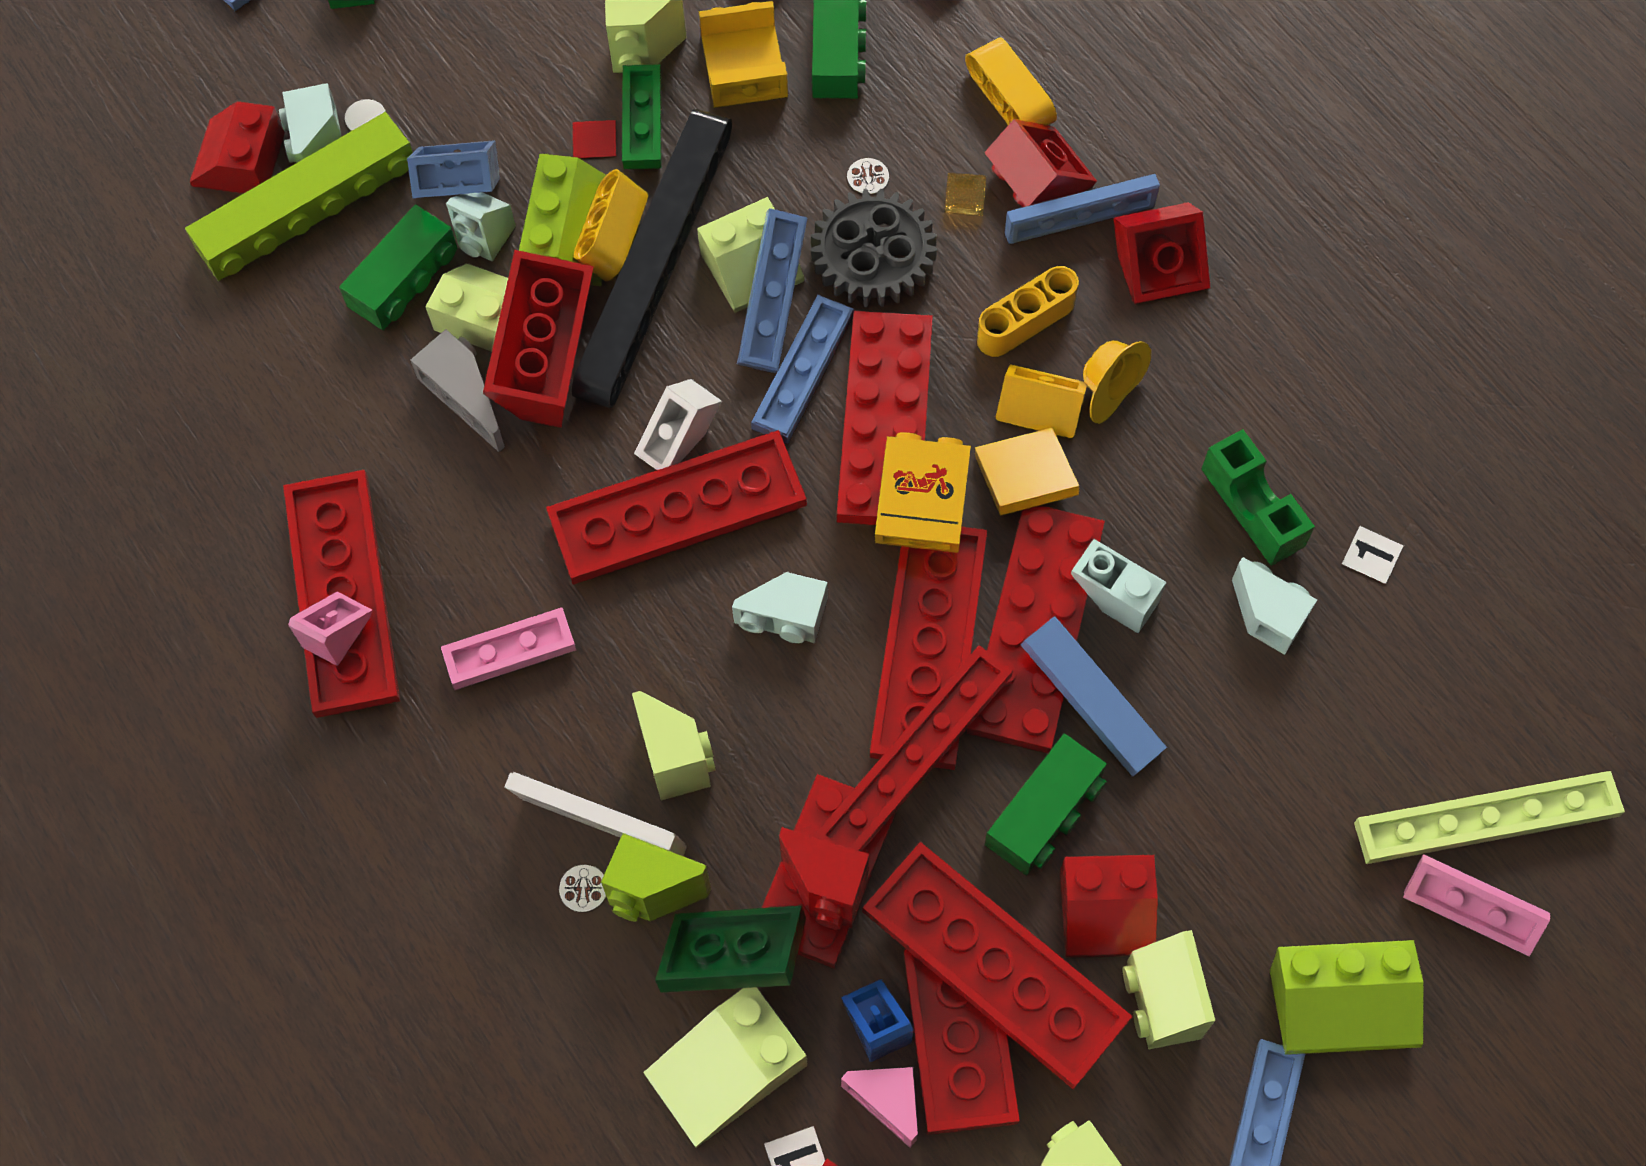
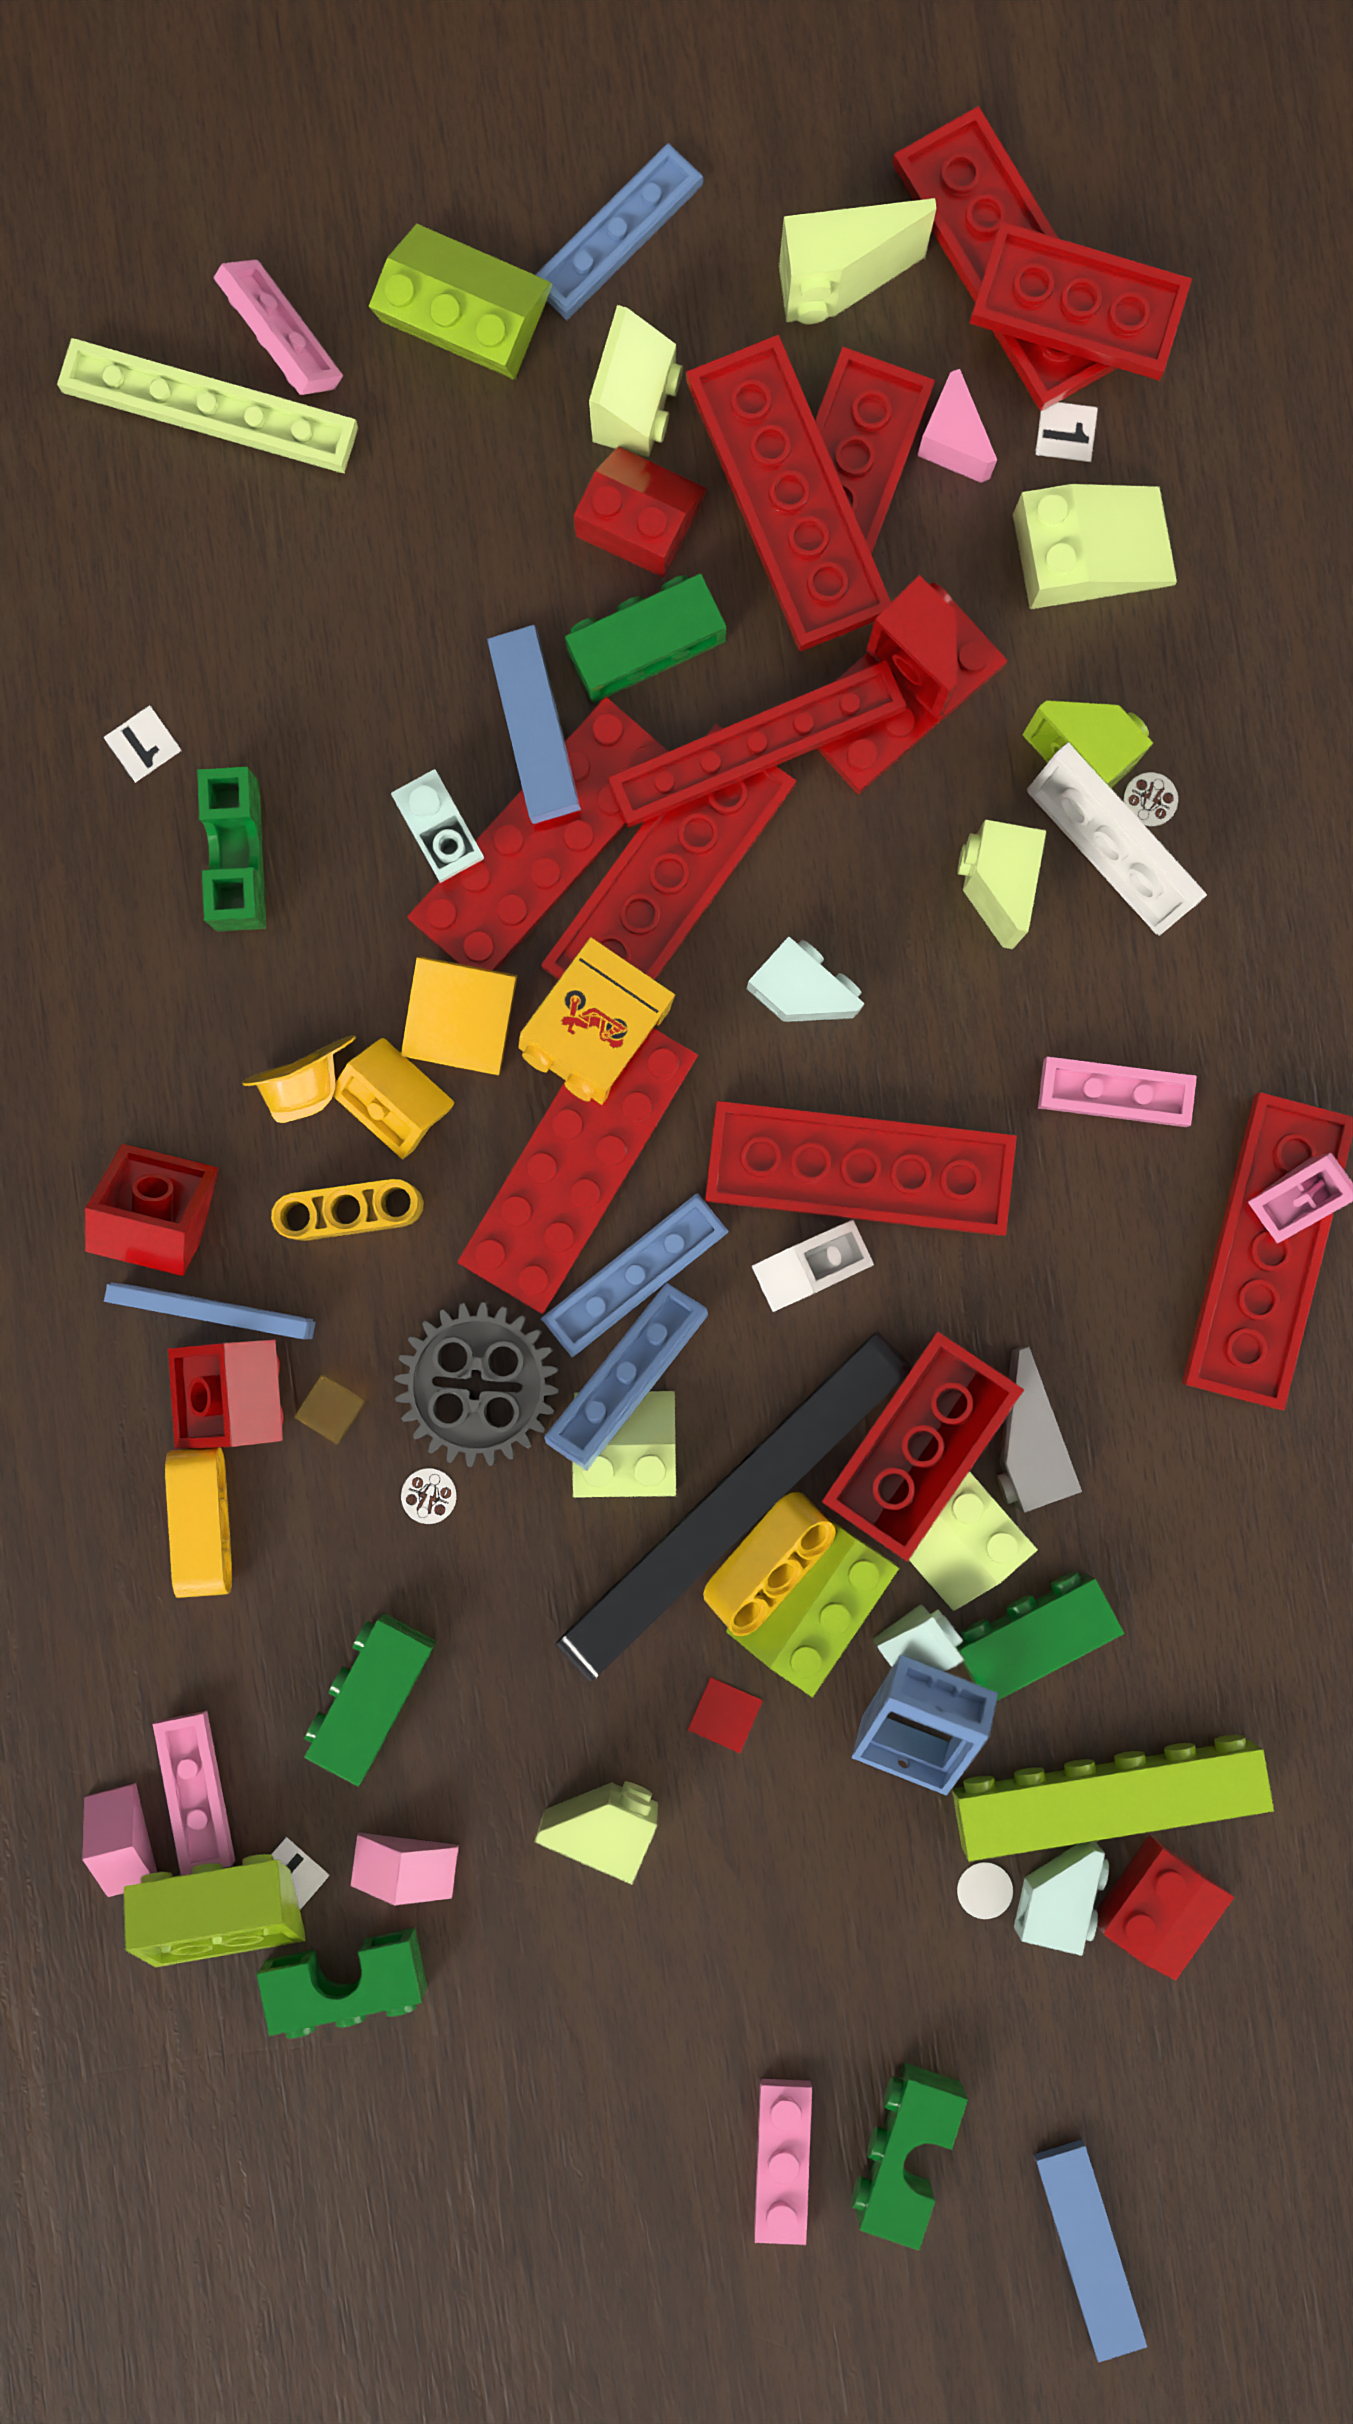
camera: 155 degrees left, 20 degrees up
(641, 117) = (657, 1710): green plate -> none
(731, 949) = (1042, 633): dark green plate -> none
(742, 54) = (492, 1739): yellow panel -> none
(878, 1020) = (928, 508): blue slope -> none
(1270, 605) = (291, 727): light aqua slope -> none

